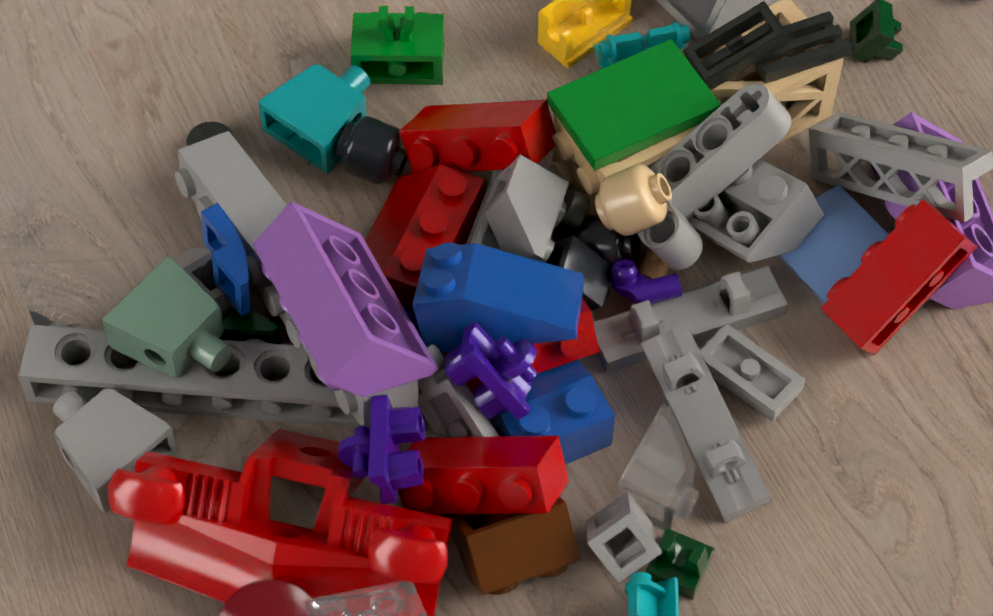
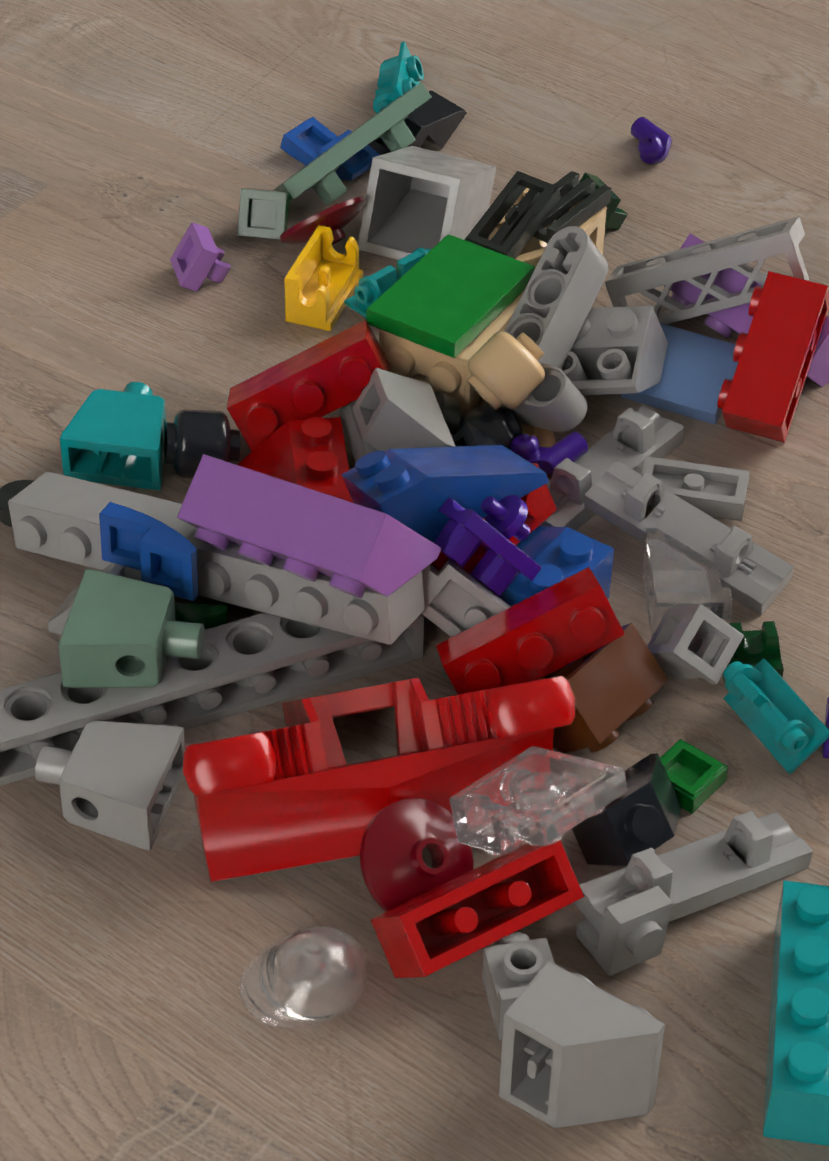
camera: 30 degrees left, 15 degrees down
(379, 448) = (428, 644): dark purple hips -> none
(399, 46) = (166, 355): green brick -> none

